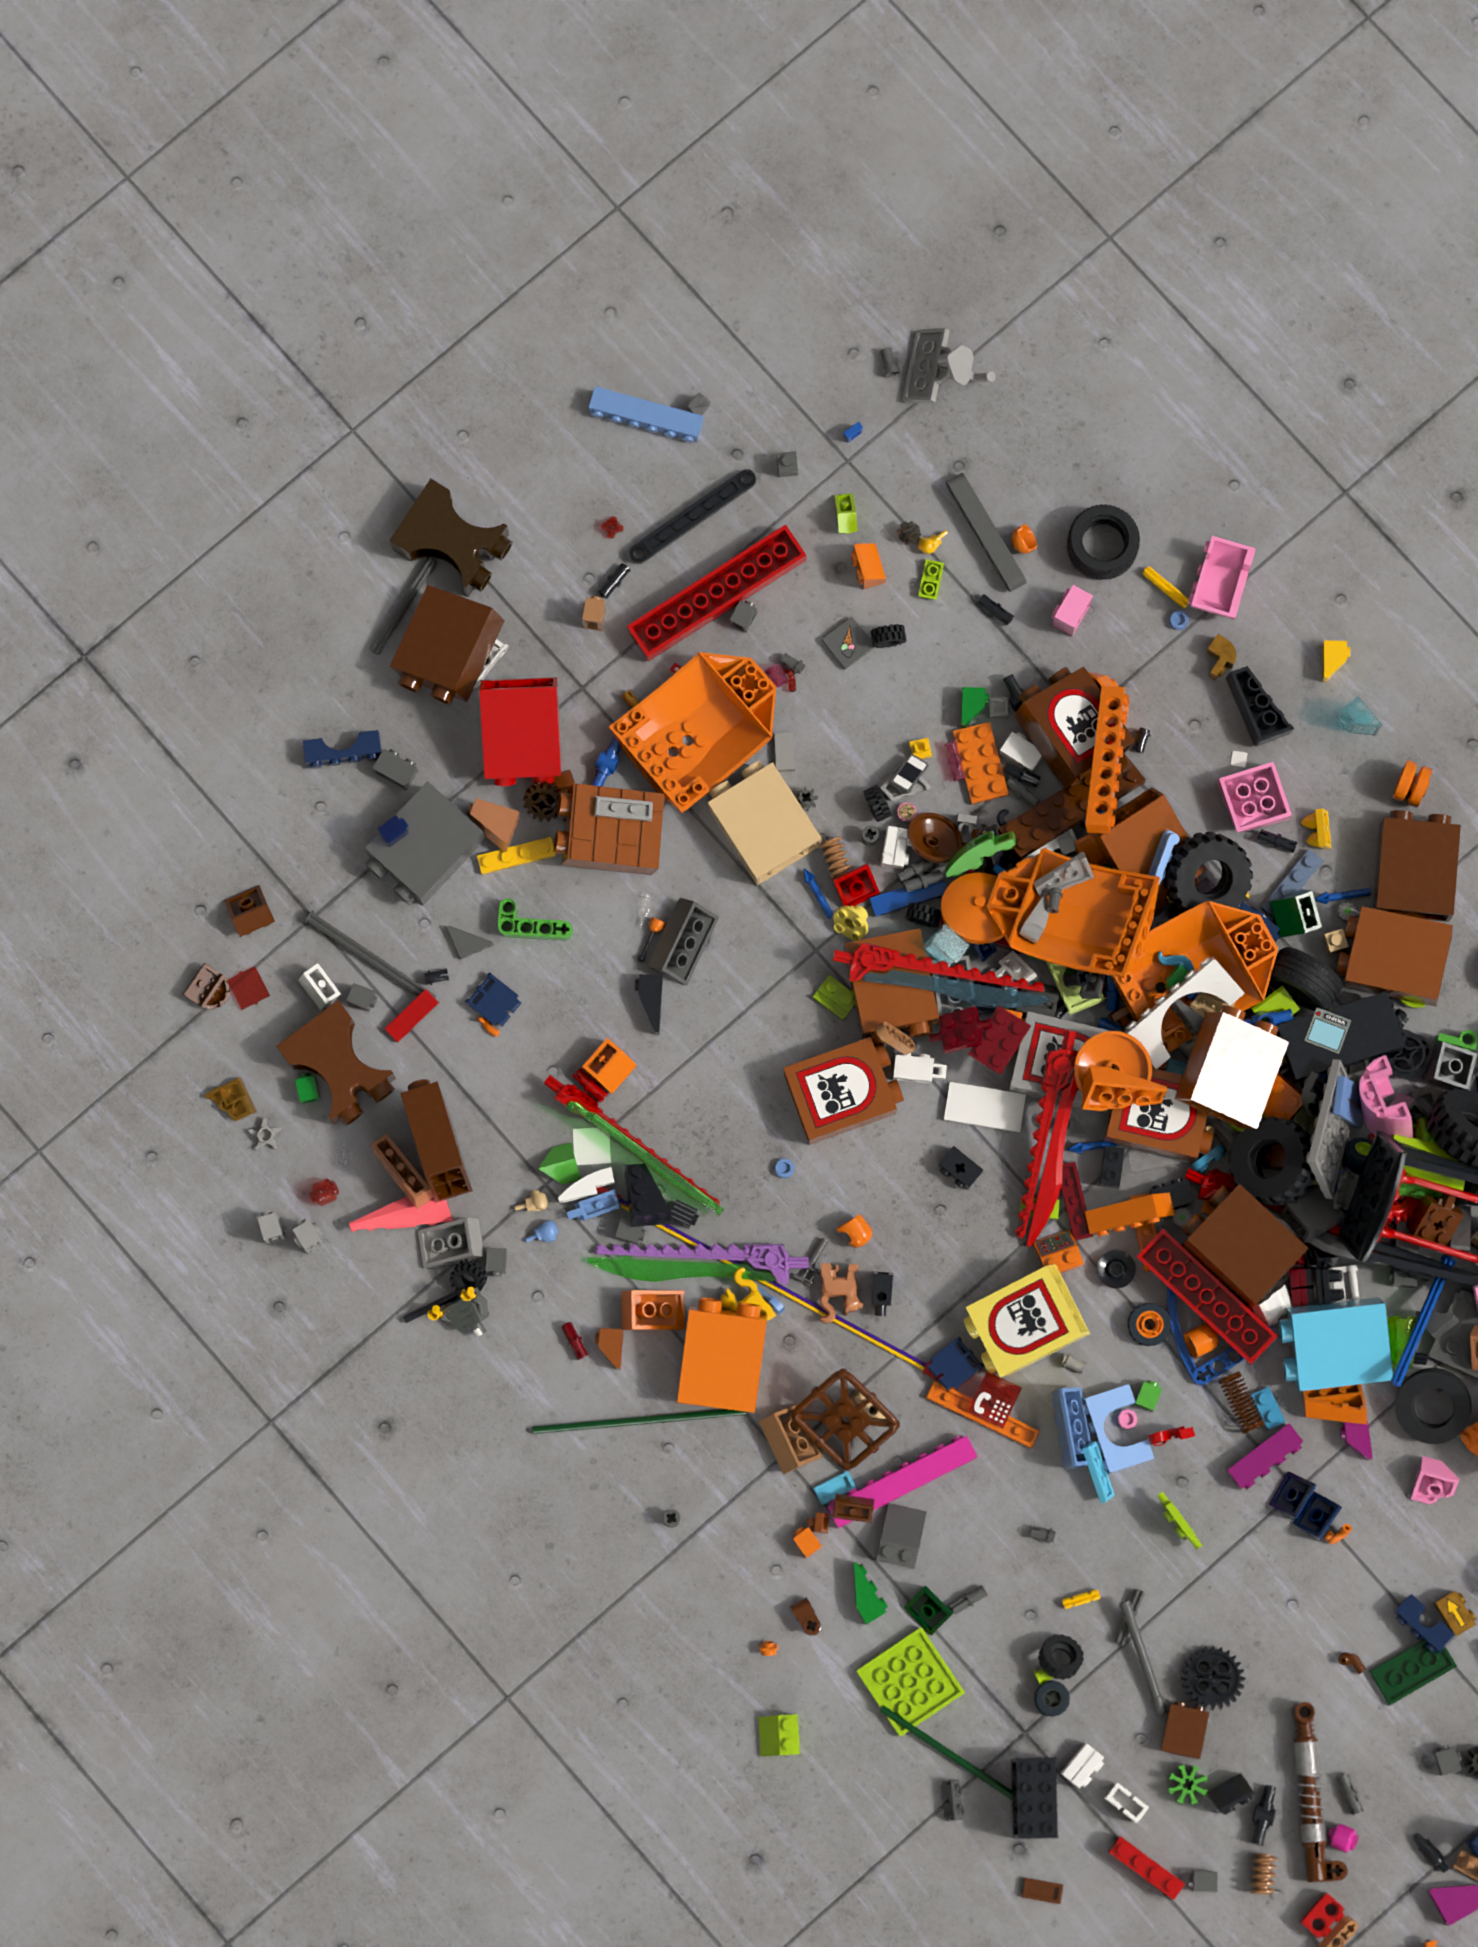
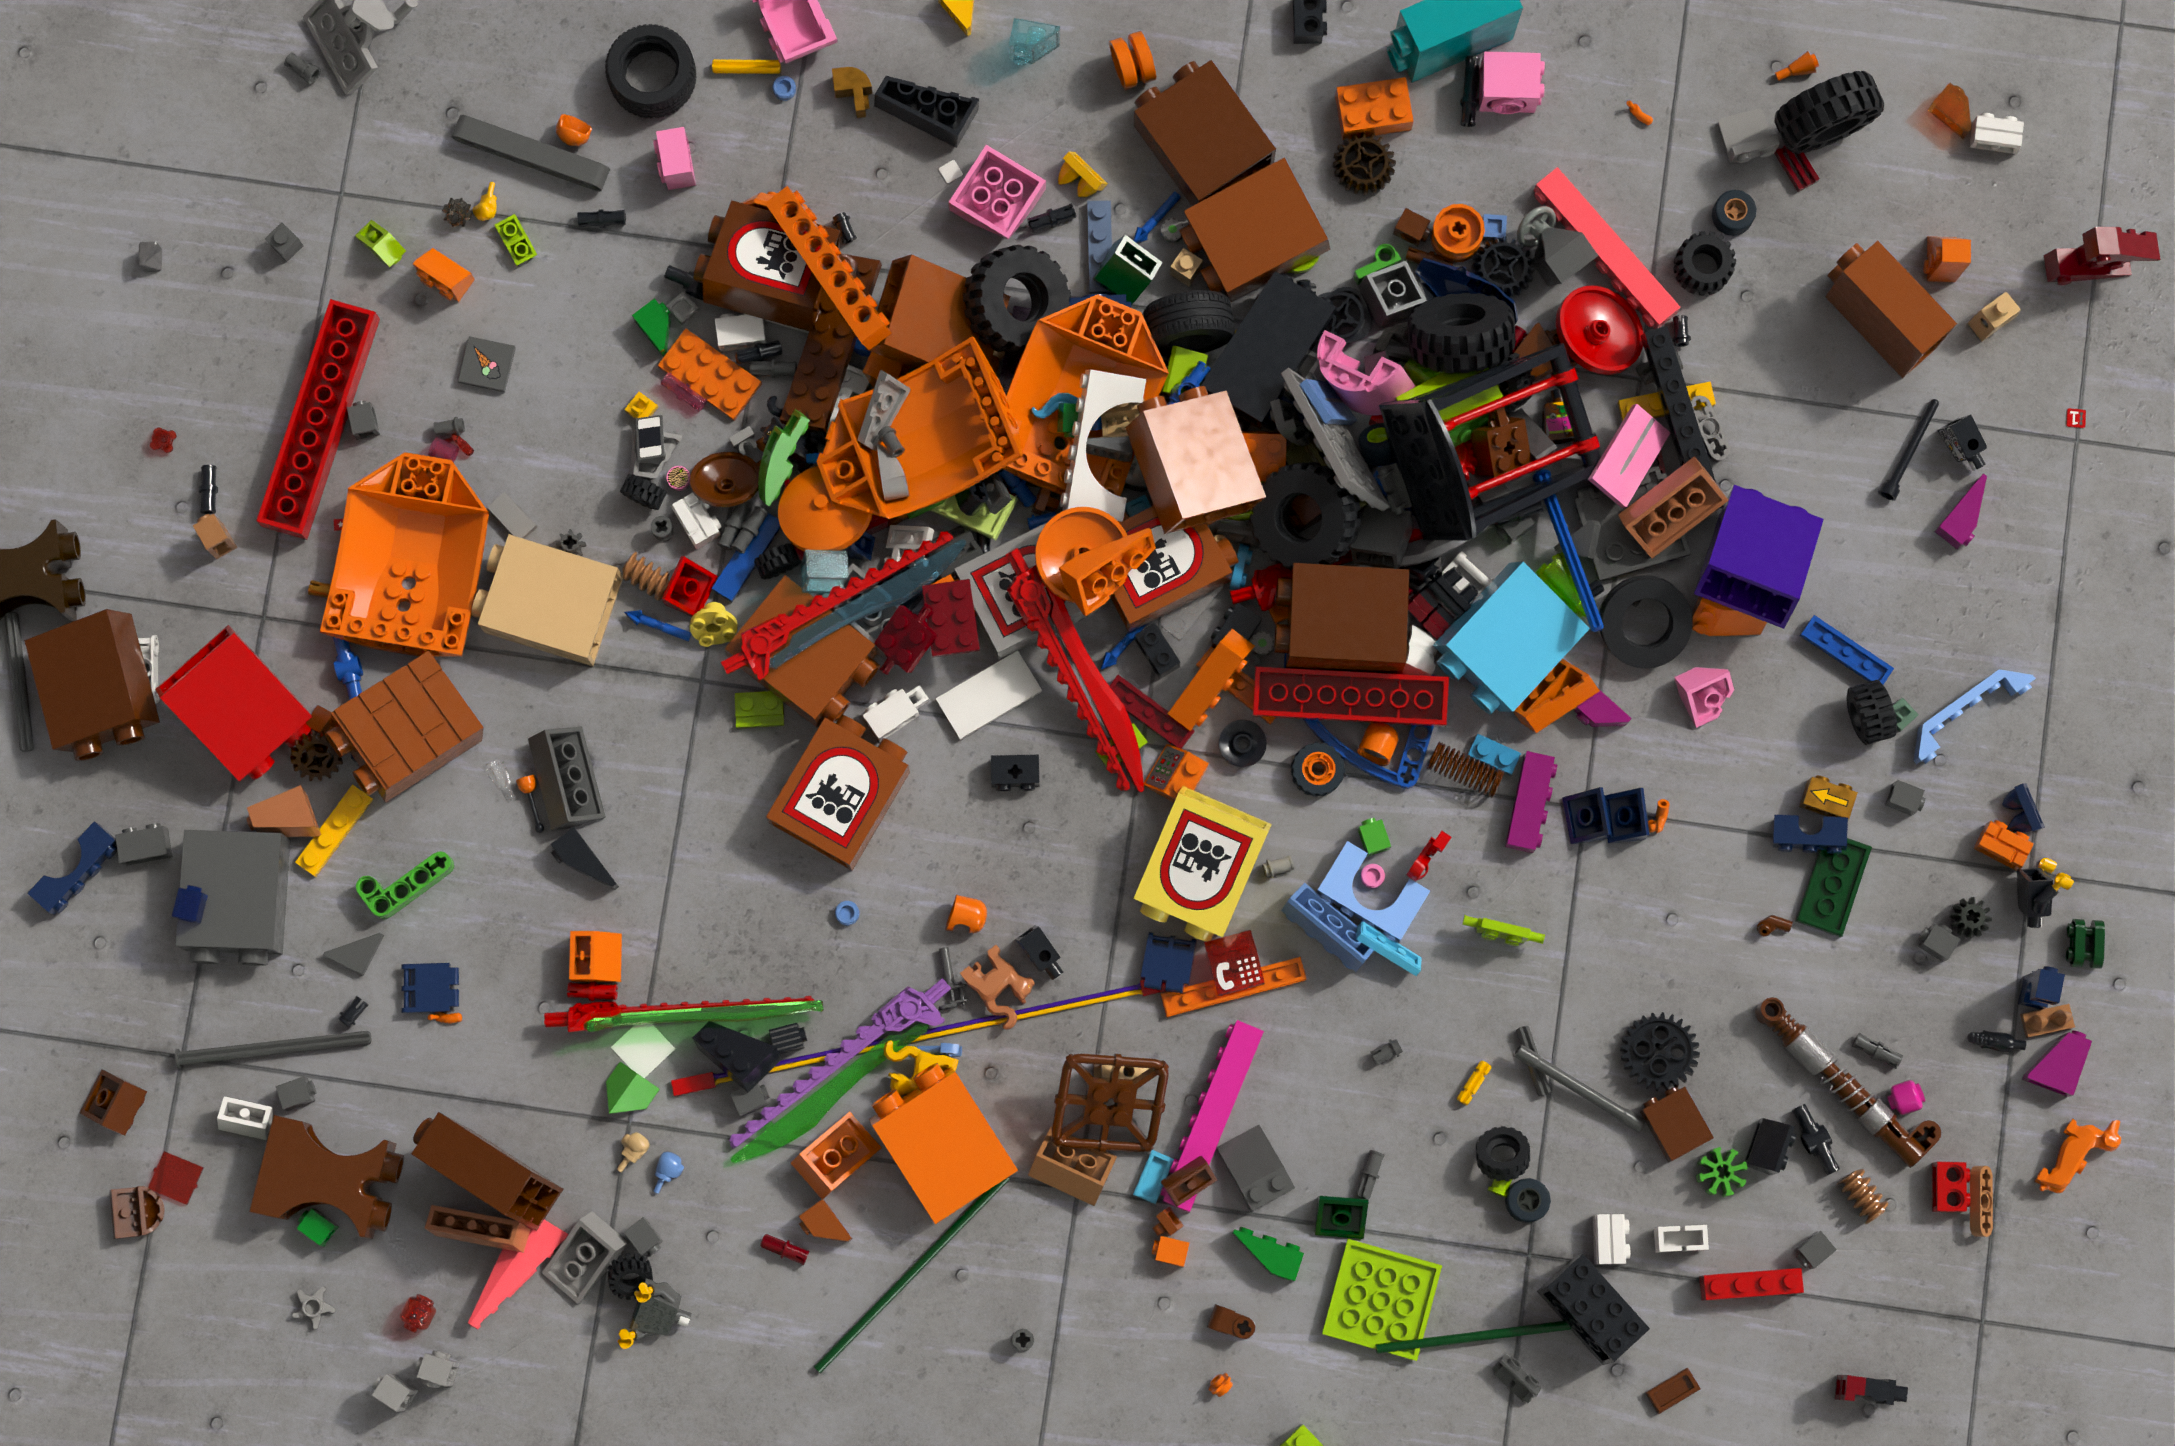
camera: 45 degrees left, 0 degrees up
(233, 1099) = (251, 1299): pearl gold slope -> none
(412, 1015) = (360, 1069): red tile -> none
(424, 1310) = (613, 1344): black bar -> none
(587, 1186) = (671, 1089): white slope -> none
(595, 1206) = (695, 1102): medium blue hinge -> none
(623, 809) = (400, 697): light grey tile -> none
(646, 414) = (105, 306): medium blue brick -> none
(692, 516) = (233, 366): black plate -> none
(853, 432) = (322, 161): blue tile -> none
(888, 636) = (519, 325): black tyre -> none
(895, 1038) = (849, 698): medium nougat beam -> none
(1163, 854) = (957, 311): light blue plate -> none
(1327, 1030) = (1251, 352): sticker -> none

